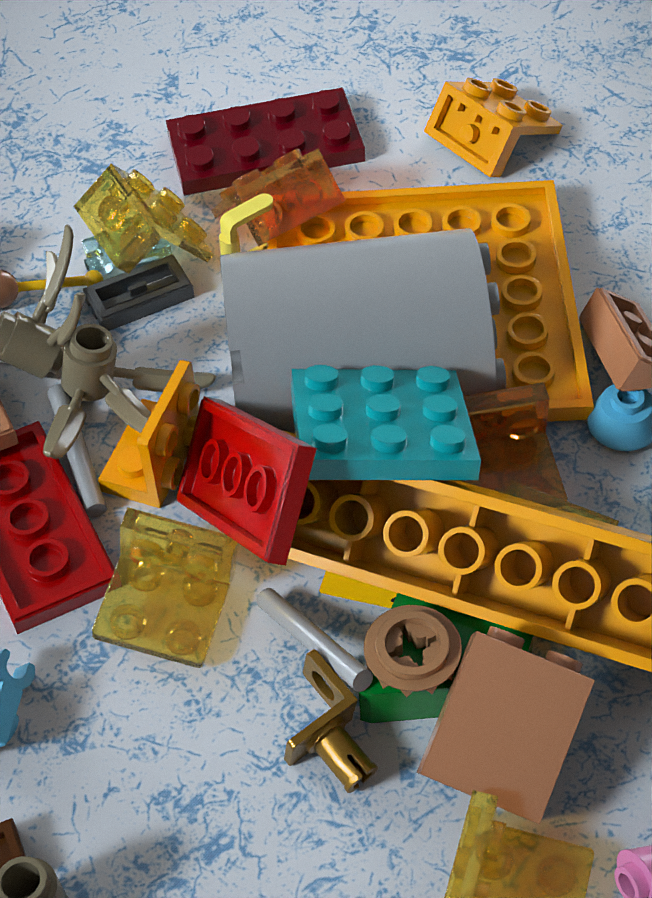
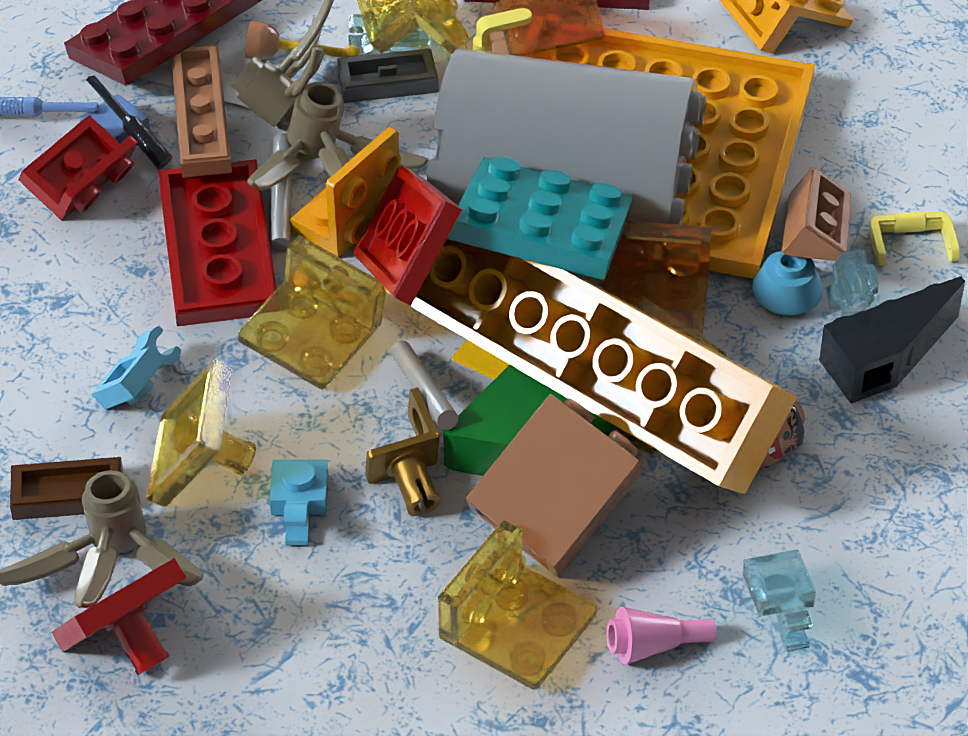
camera: 15 degrees right, 5 degrees down
(89, 776) = (194, 435): none -> clear yellow tile
(222, 804) = (297, 492): none -> medium azure plate
(424, 629) = (477, 401): medium nougat gear -> none

